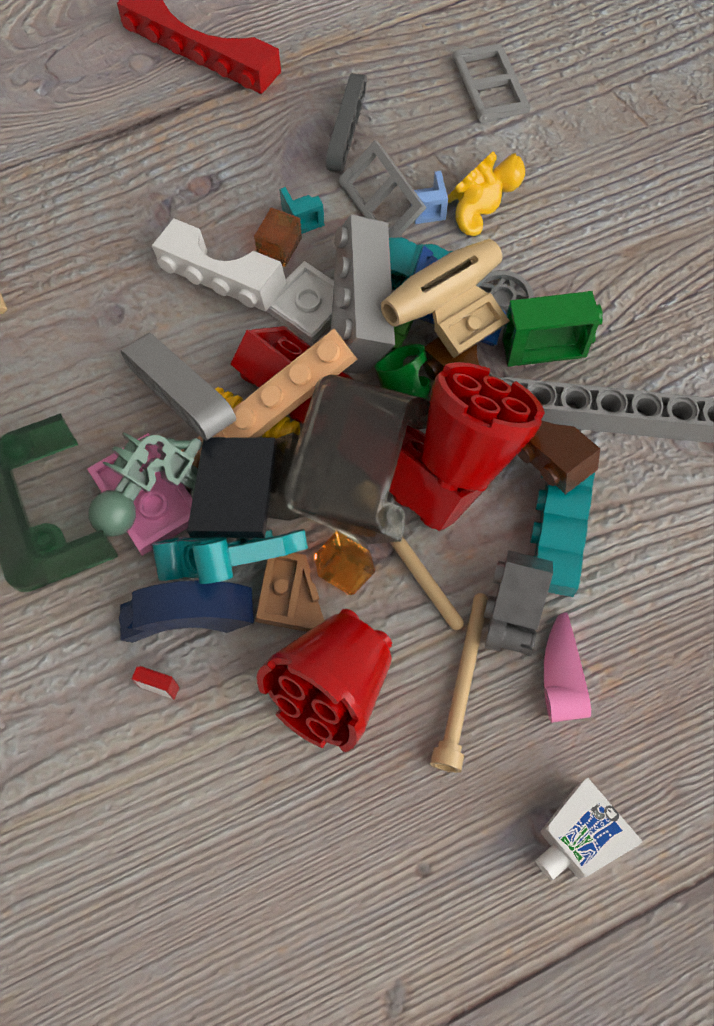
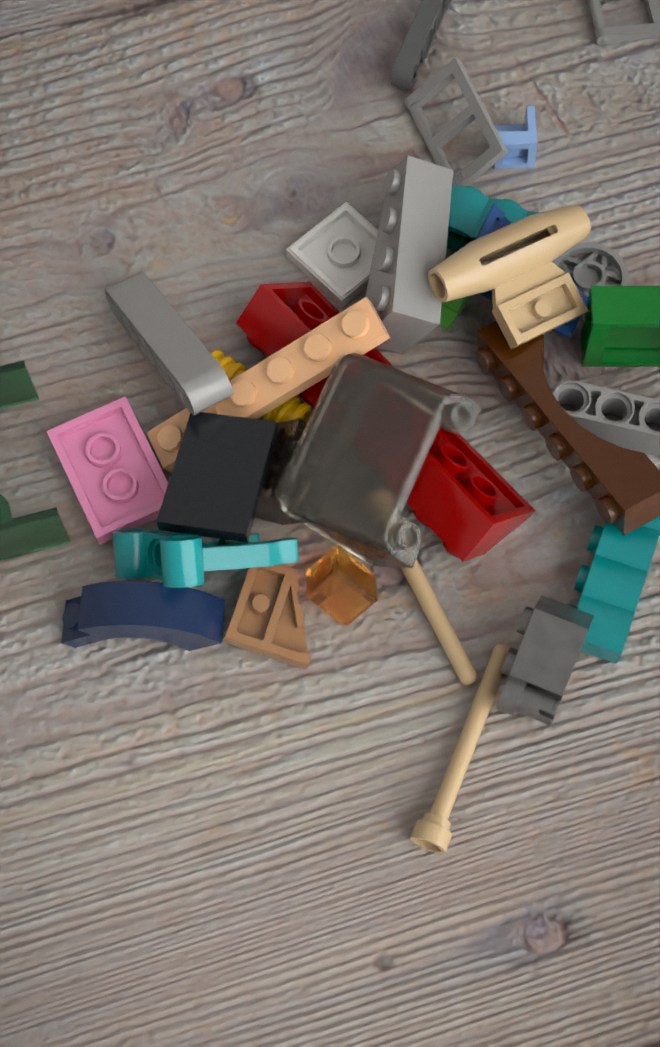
camera: 10 degrees right, 0 degrees up
(114, 509) = (74, 485): sand green piece -> none
(155, 682) = (96, 697): red tile -> none
(250, 279) = (275, 219): white arch -> none
(278, 235) = (317, 168): clear orange brick -> none
(307, 208) = (352, 139): teal panel -> none
(329, 680) = (301, 721): red cone -> none
(404, 378) = (445, 366): green helmet -> none
(476, 426) = (522, 437): red cone -> none
(482, 190) = (585, 137): yellow animal -> none
(563, 675) = (587, 756): bright pink piece -> none
(585, 834) = (582, 946): torso -> none

